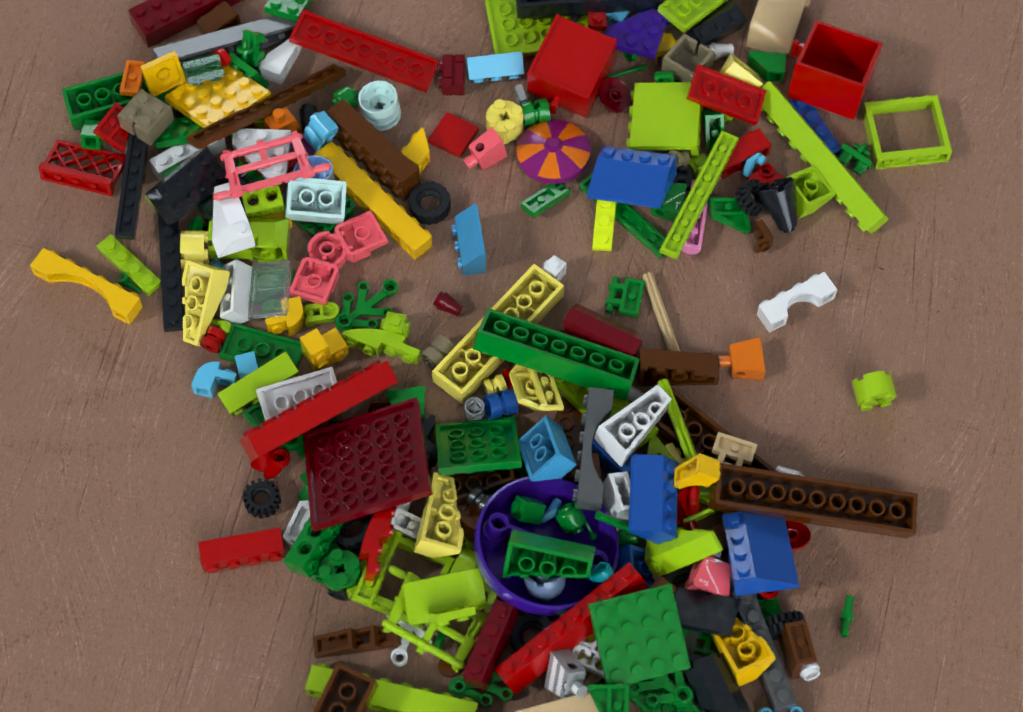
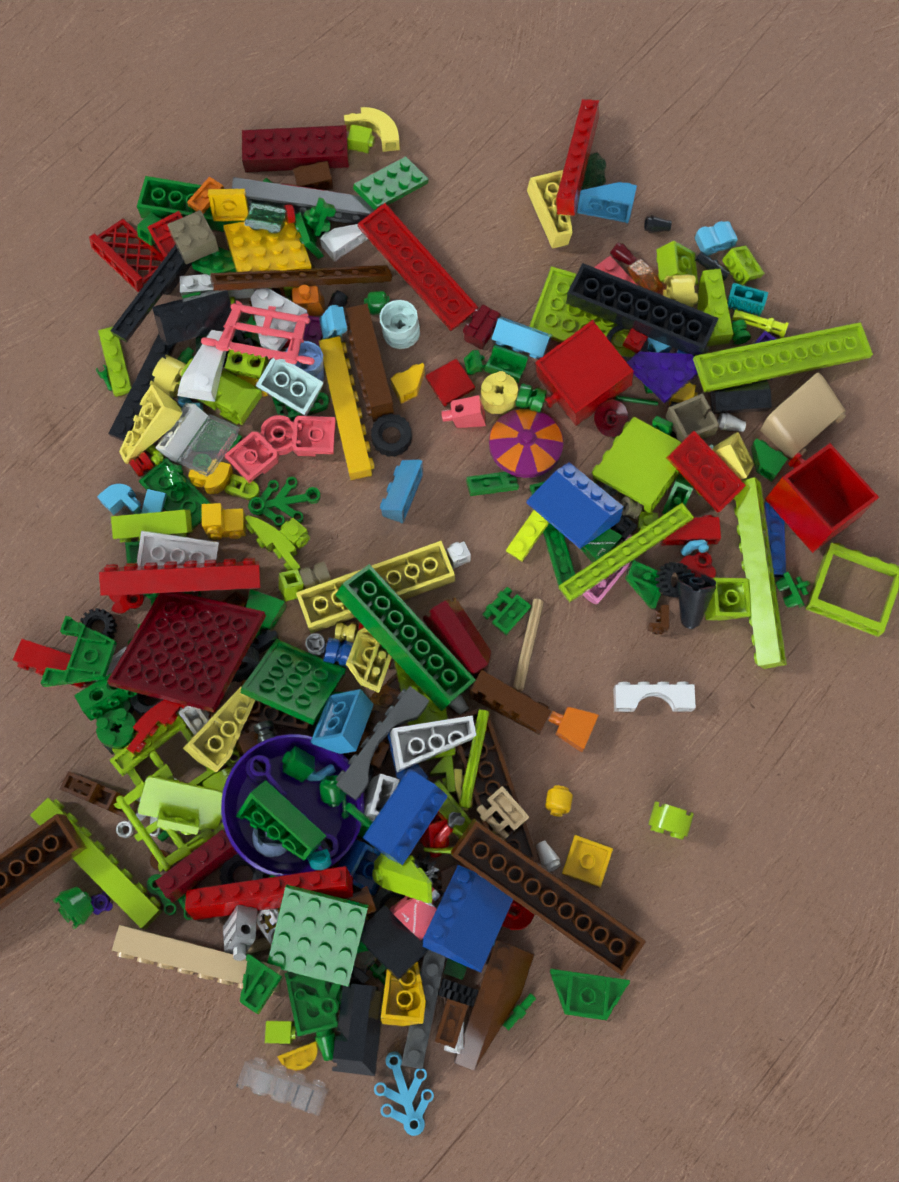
camera: 30 degrees right, 10 degrees up
(53, 268) = (85, 390): yellow arch -> none
(254, 332) = (175, 477): none -> green wheel
(276, 523) = (88, 660): none -> green wing
(420, 369) = (289, 584): none -> lime brick
(447, 304) = (351, 536): dark red cone -> none
(465, 107) = (473, 362): none -> green tile
(491, 91) = (506, 361): none -> green bracket
(520, 94) = (528, 375): light grey tile -> none
(697, 472) = (452, 819): yellow arch -> none
(770, 426) = (558, 800): none -> yellow head
(820, 609) = (495, 1000): none -> reddish brown wedge
(826, 461) = (587, 861): none -> yellow plate
(893, 569) = (587, 994): none -> green wing

